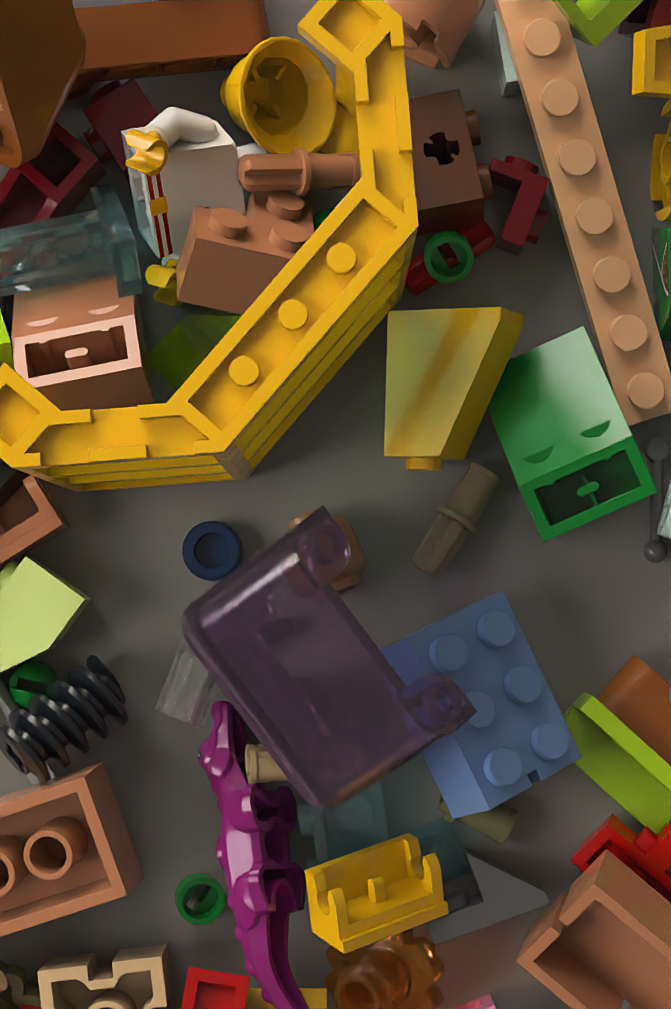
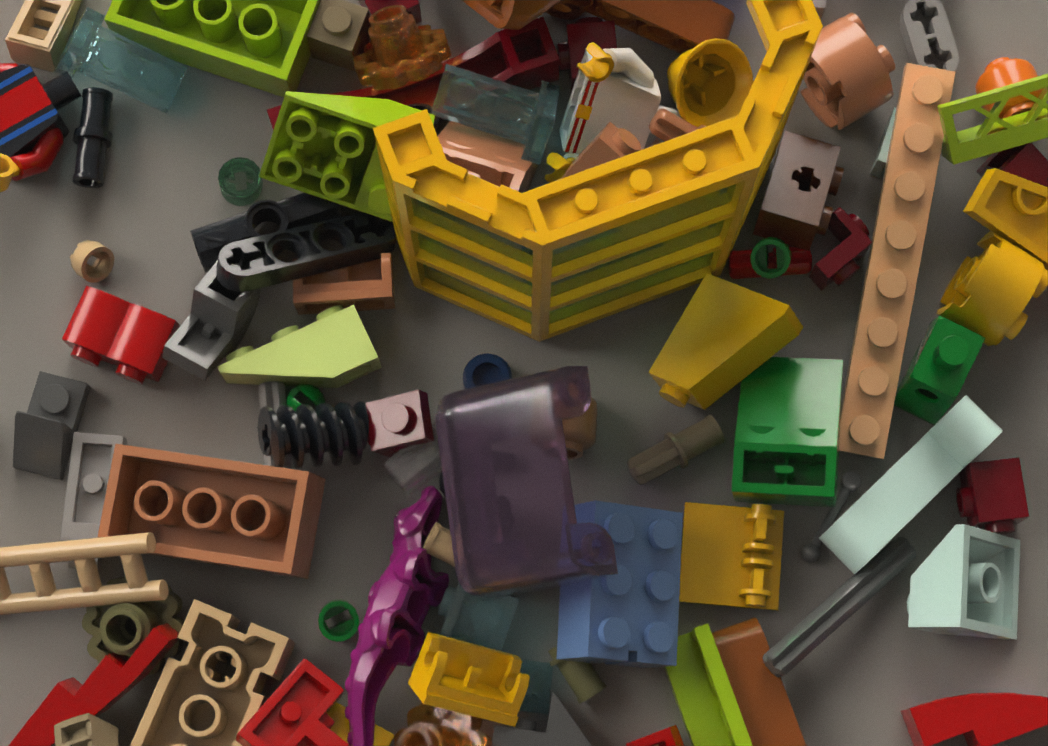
camera: 30 degrees right, 10 degrees down
(147, 657) = (399, 422): none -> bracket
(574, 600) = (731, 555): none -> yellow hinge

